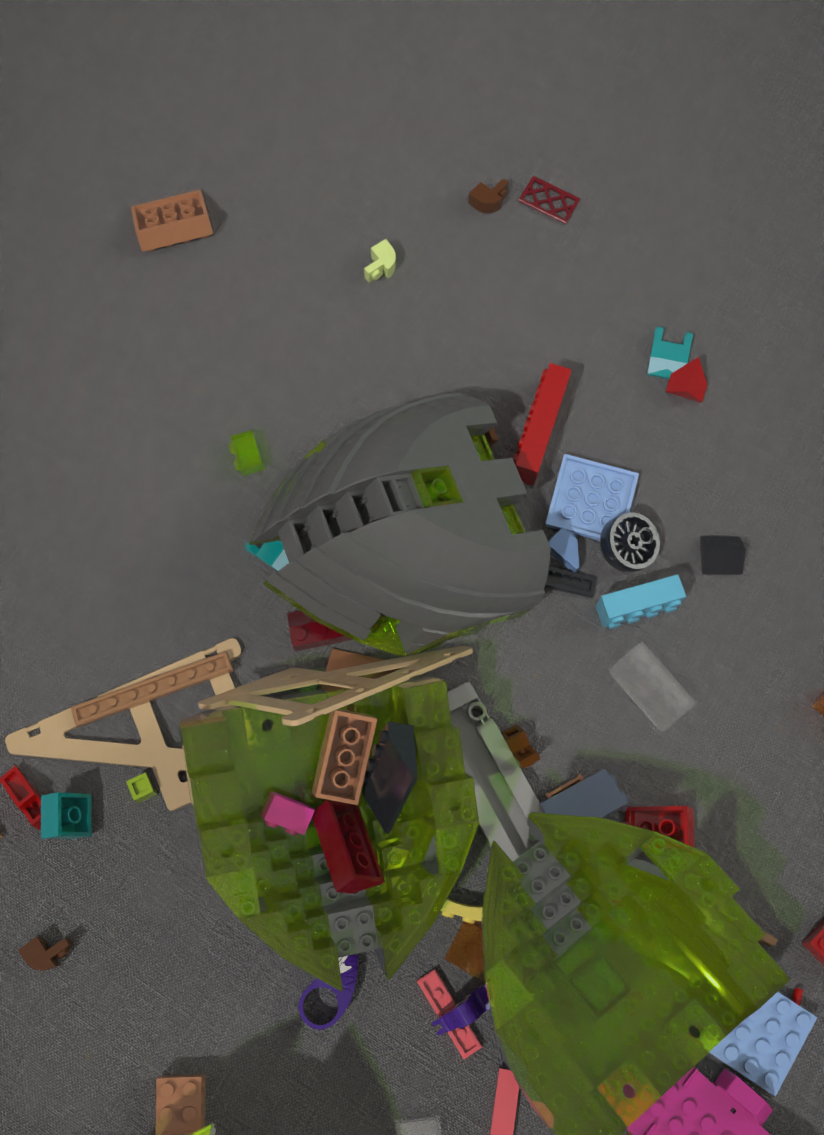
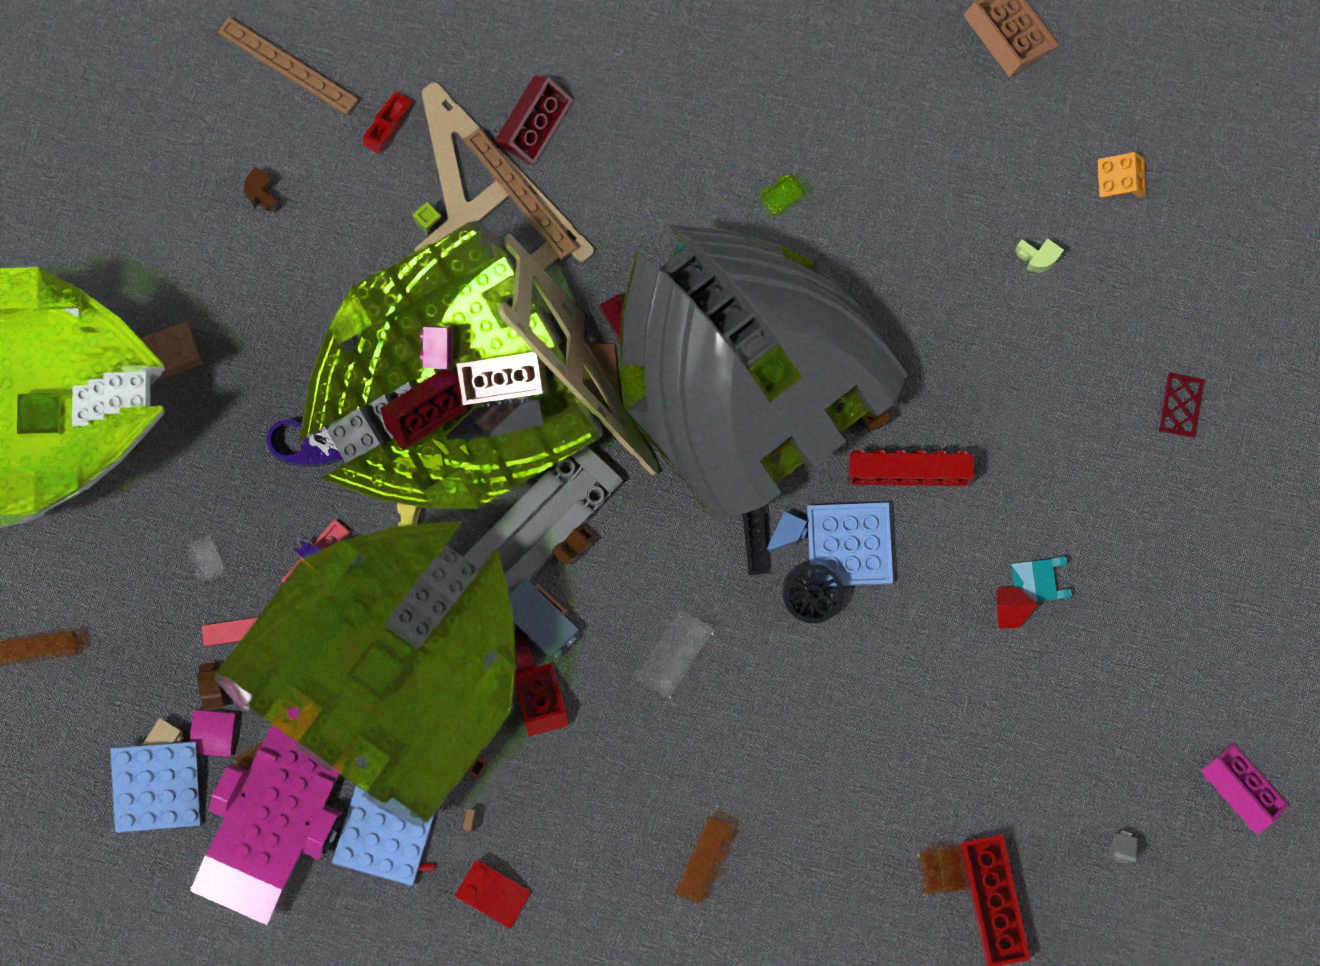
camera: 75 degrees right, 5 degrees up
(66, 816) = (380, 162): teal brick -> none
(83, 652) = (534, 119): none -> dark red slope
(334, 179) = (1122, 175): none -> light orange bracket
(488, 200) = (1153, 341): reddish brown brick -> none
(640, 601) = (754, 618): medium azure brick -> none
(722, 555) = (835, 690): black slope -> none

